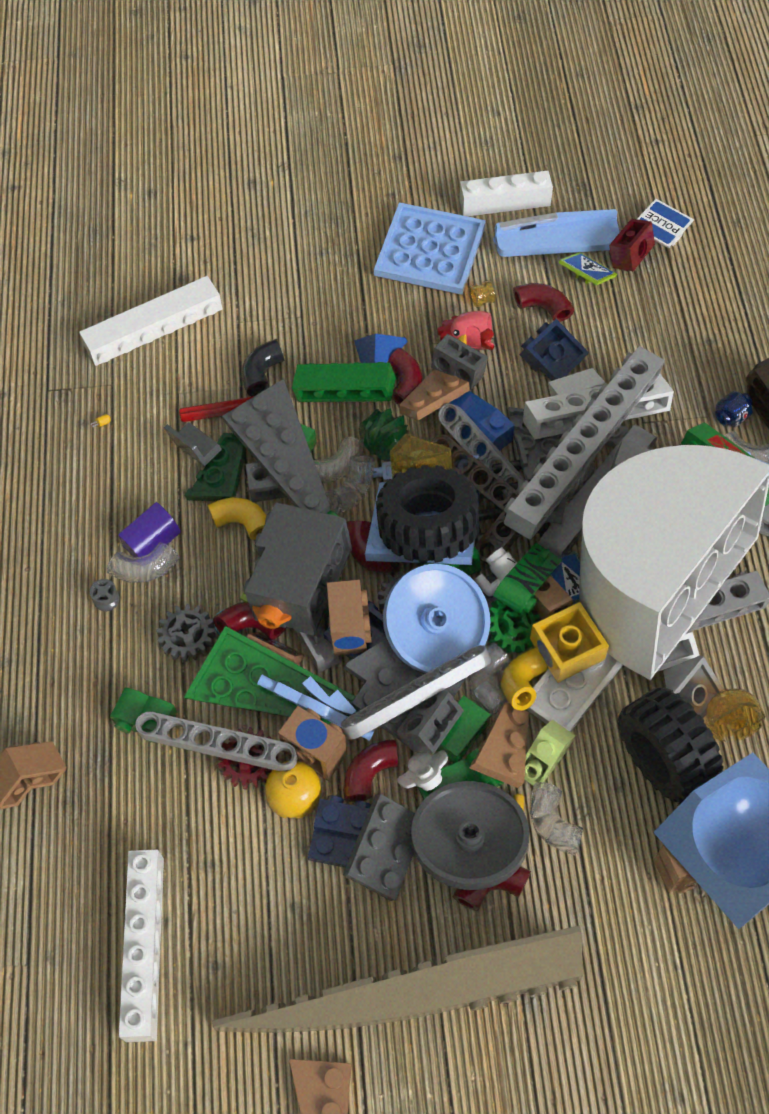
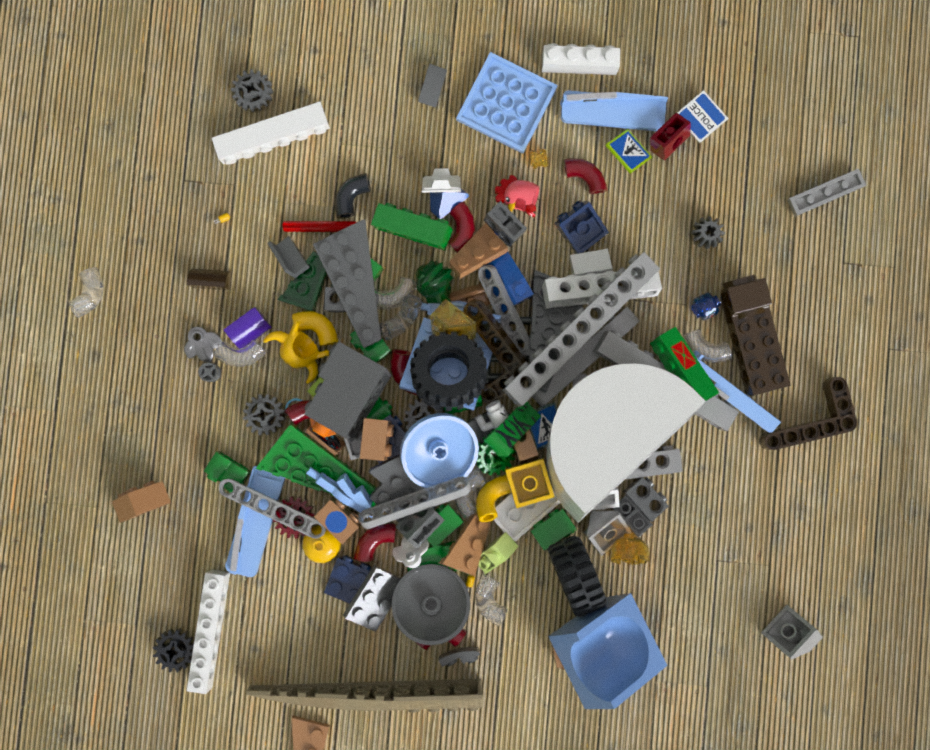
camera: 10 degrees right, 25 degrees up
(79, 985) = (168, 656): none -> black gear
(88, 568) = (203, 347): none -> flat silver plate
(92, 488) = (209, 279): none -> dark brown brick
(123, 283) = (252, 99): none -> dark grey gear
(192, 785) = (253, 526): none -> light blue piece
(220, 544) = (298, 350): none -> yellow piece
(338, 245) = (432, 85): none -> dark grey slope
(370, 327) = (441, 182): none -> white piece
(536, 906) = (466, 654): none -> dark grey slope
(618, 694) = (553, 529): none -> green brick
(709, 333) = (711, 239): none -> dark grey gear
(727, 674) = (633, 516): none -> dark grey slope
(729, 649) = (644, 500): none -> dark grey brick

